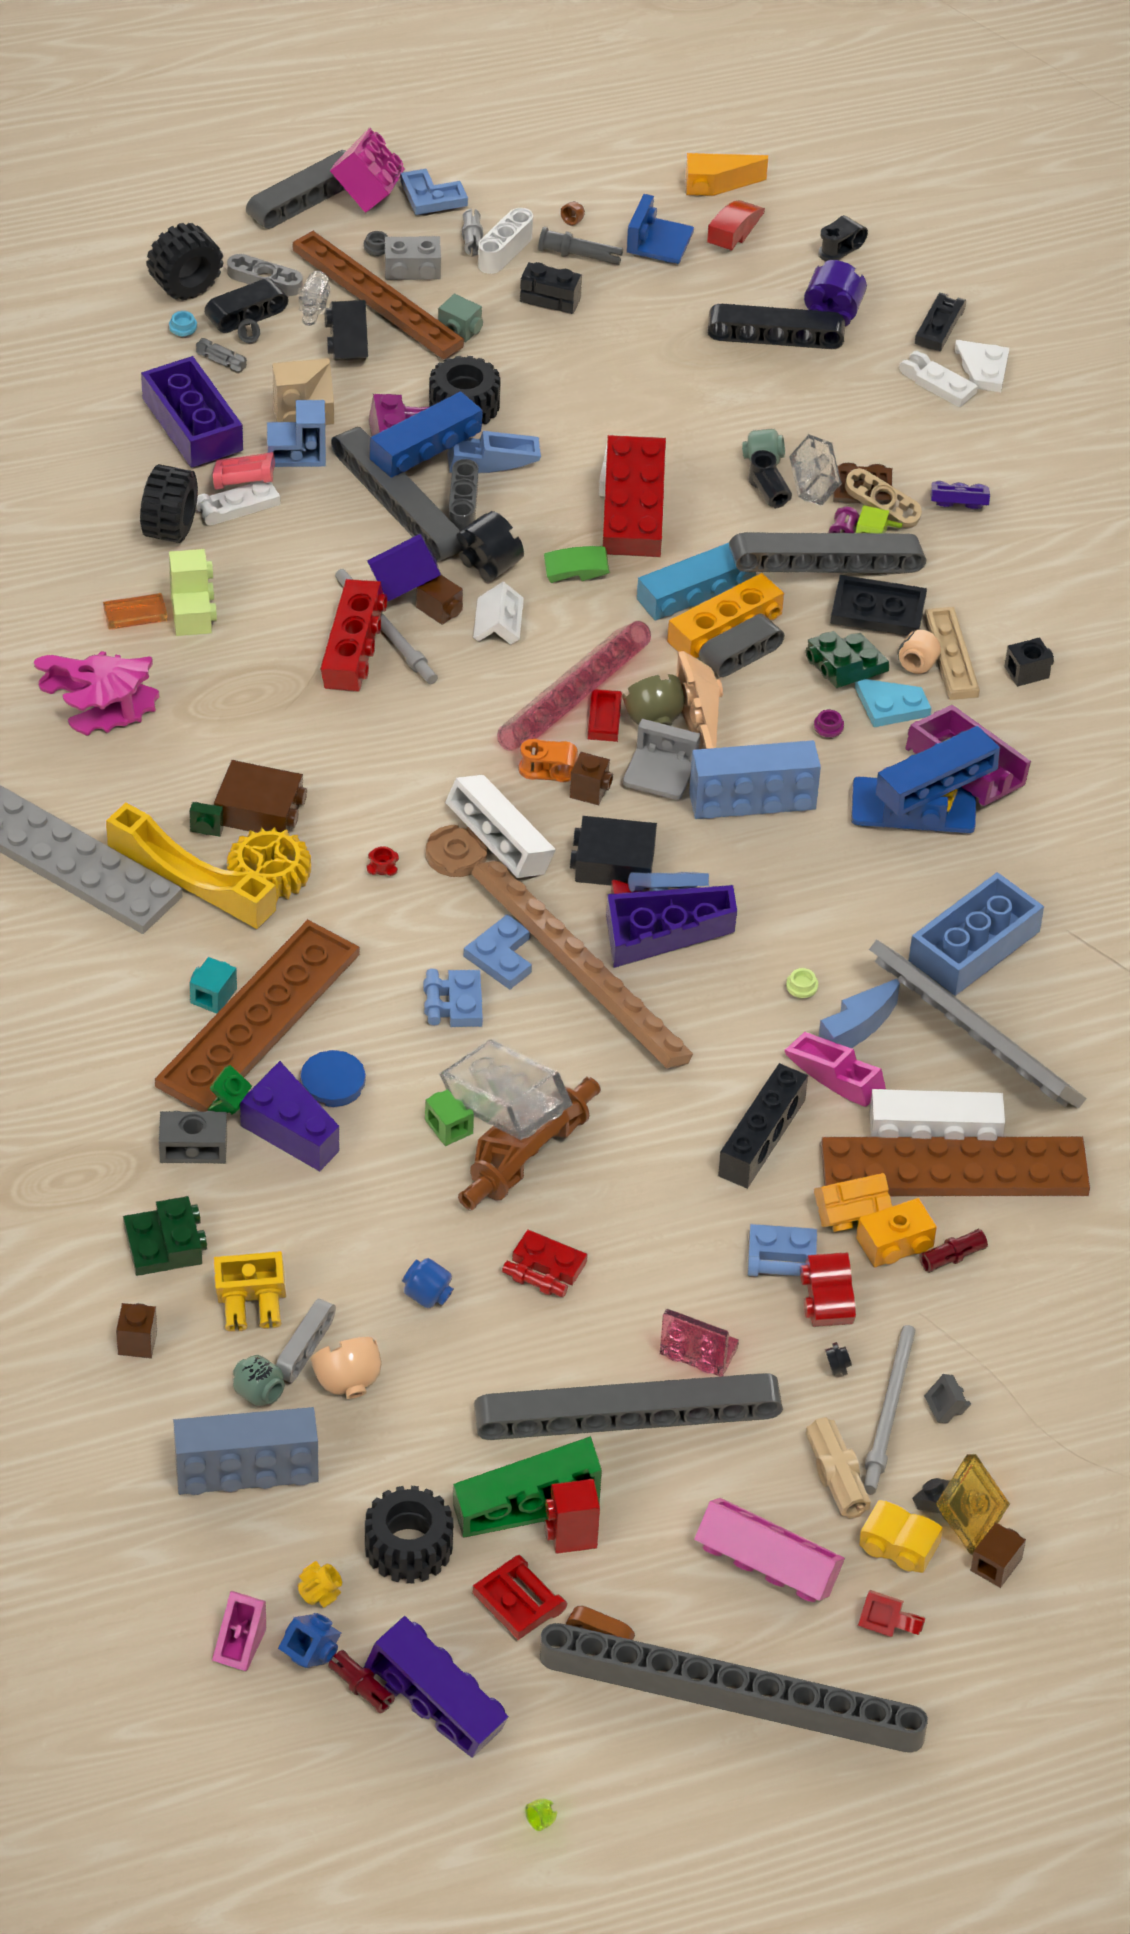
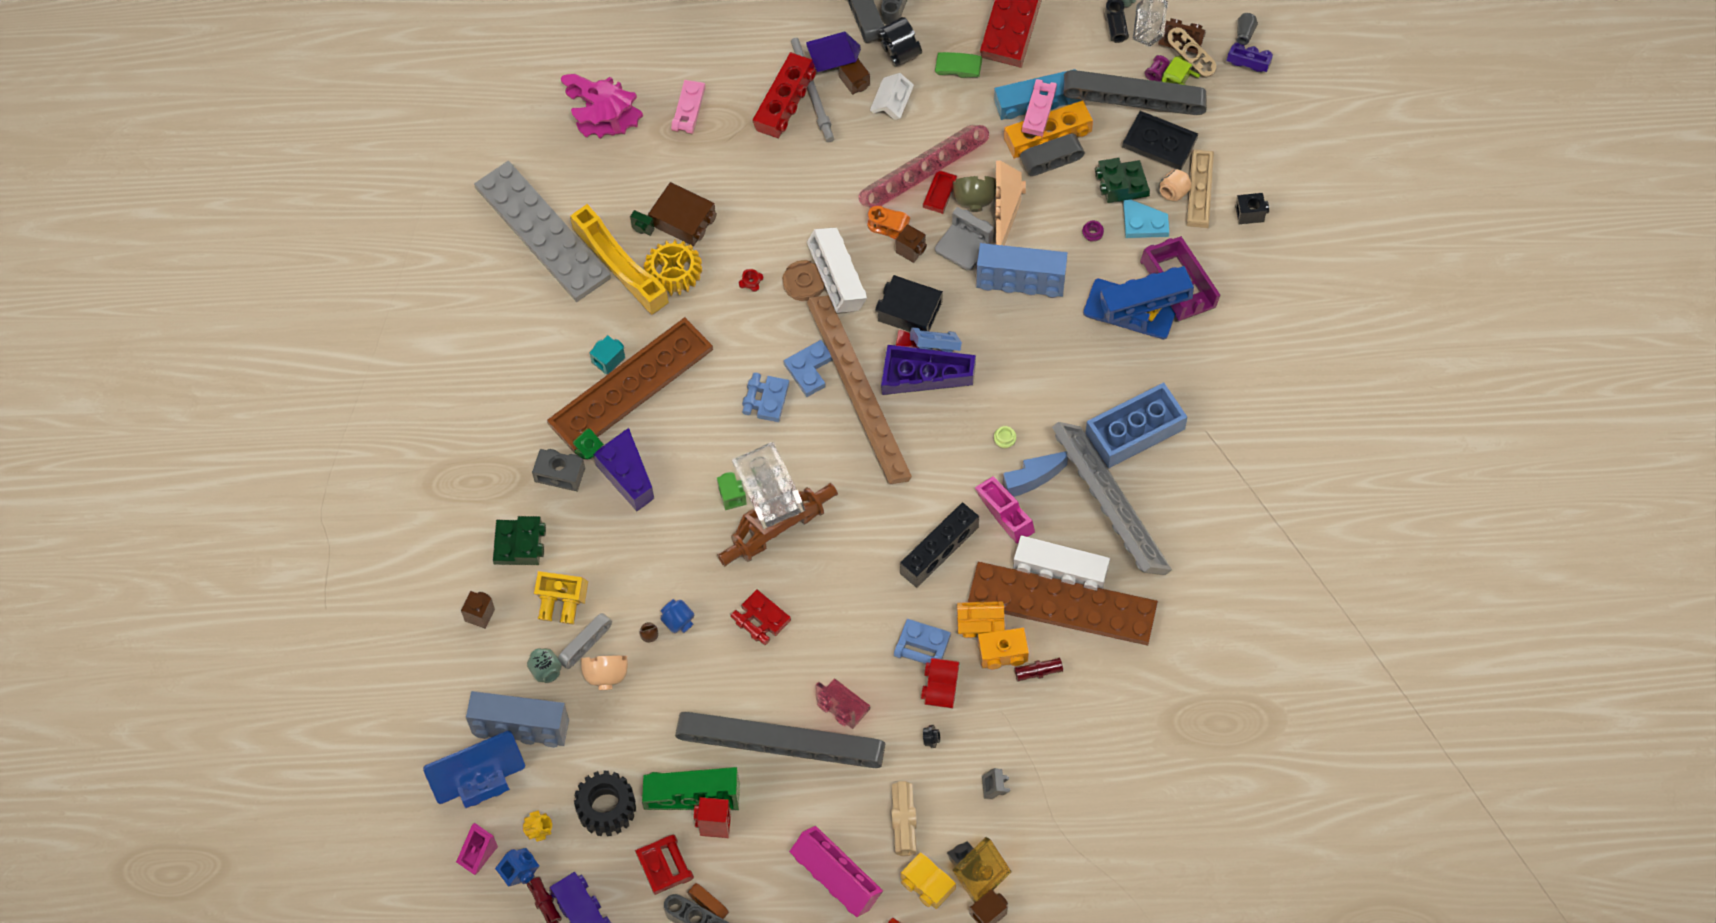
camera: 20 degrees right, 15 degrees up
(135, 611) = (646, 44): clear orange tile -> none
(191, 592) = (685, 40): yellowish green brick -> none
(205, 1530) = (475, 771): none -> blue bracket
(220, 673) = (688, 106): none -> bright pink plate
(333, 1077) = (665, 442): blue tile -> none
(394, 1316) = (649, 635): none -> reddish brown hinge
(708, 589) = (1039, 108): none -> bright pink plate
(877, 1458) = (932, 818): light grey bar -> none
(942, 459) = (1245, 28): none -> dark grey cone

